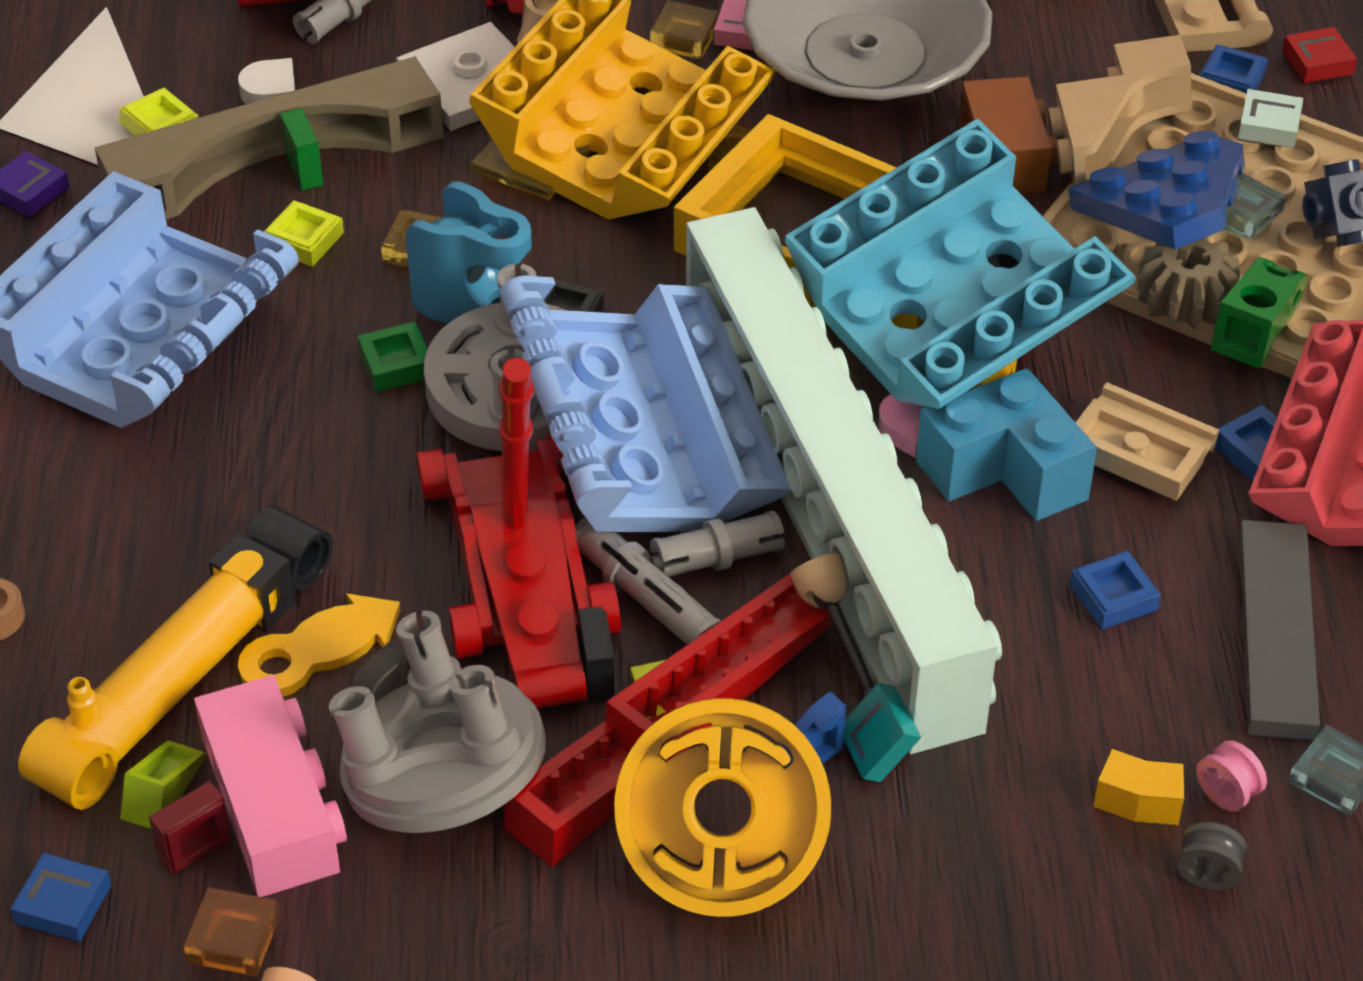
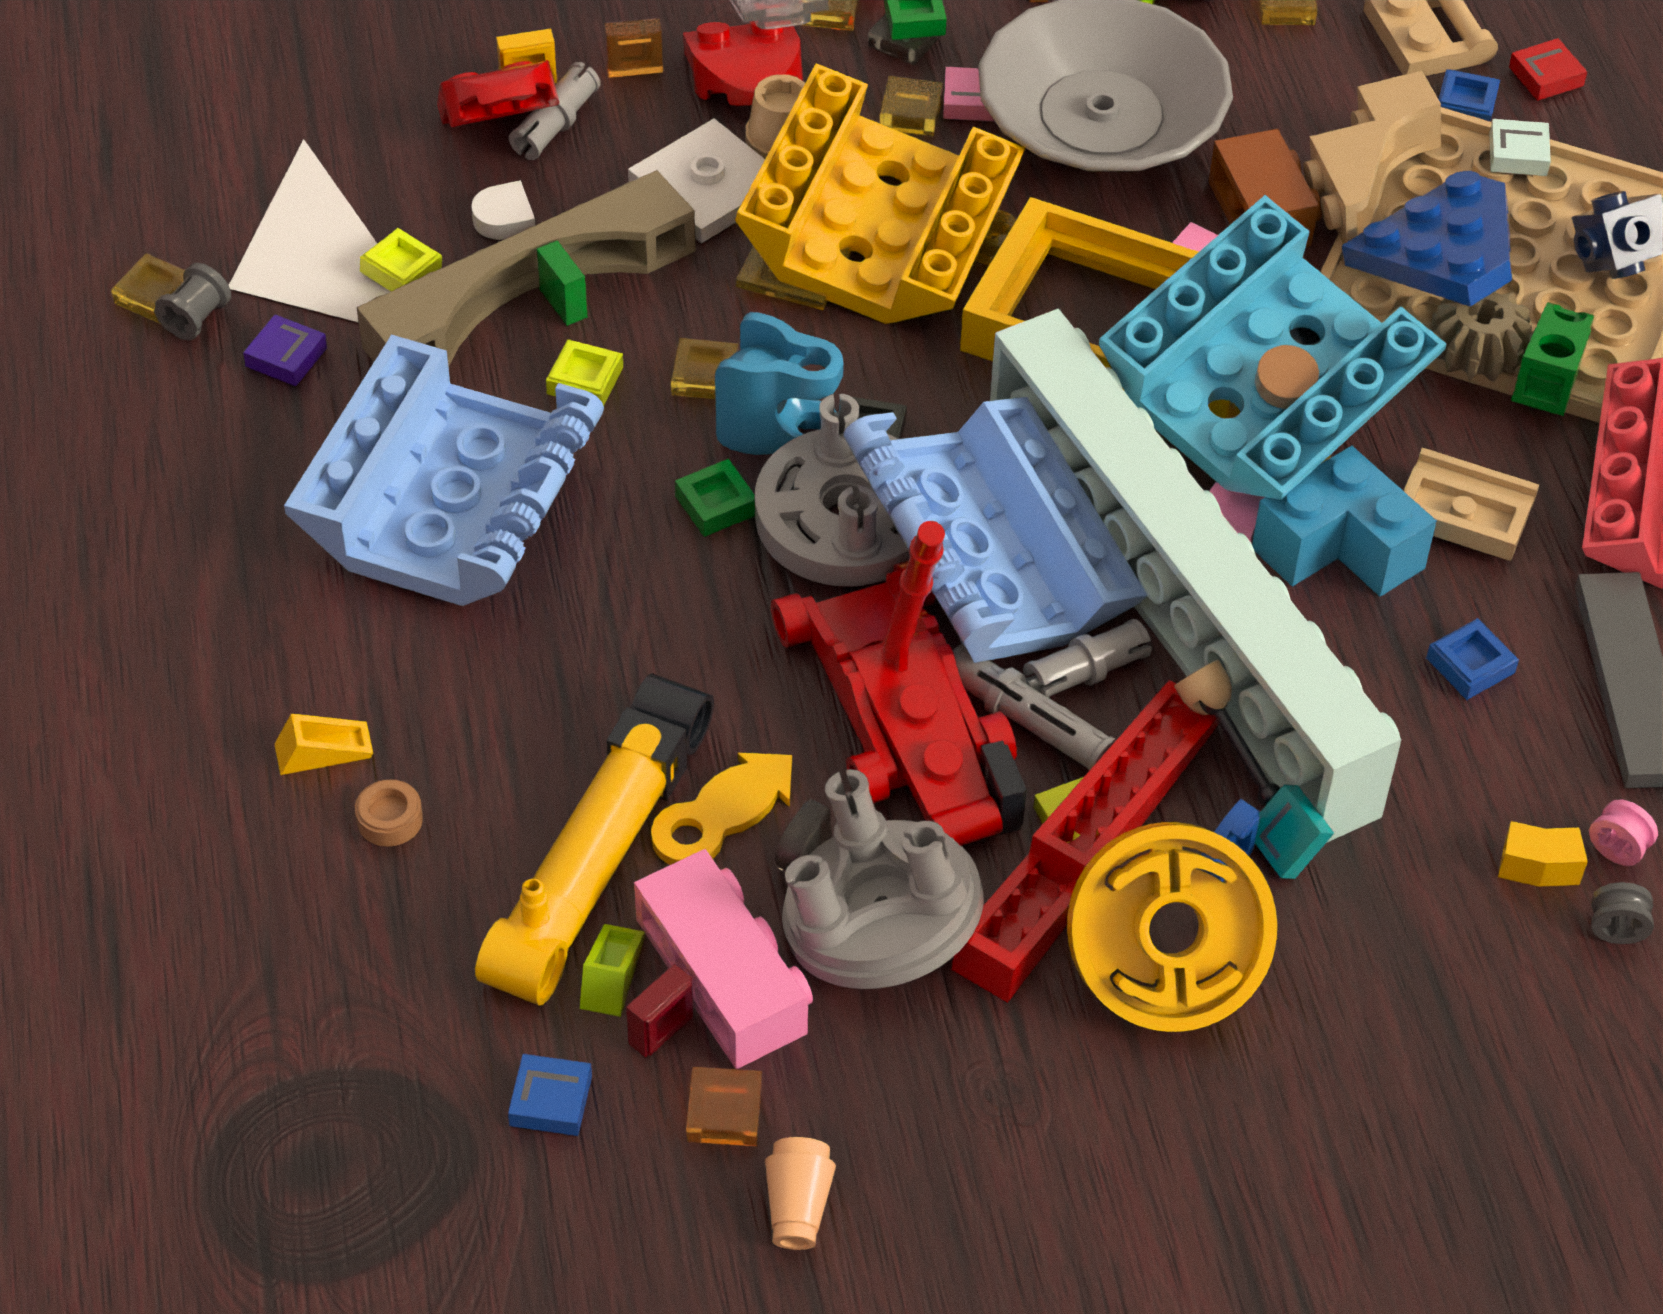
camera: 10 degrees left, 5 degrees up
(966, 289) = (1285, 375): none -> medium nougat tile
(1245, 439) = (1566, 492): blue tile -> none
(1253, 206) = (1527, 244): clear light blue tile -> none

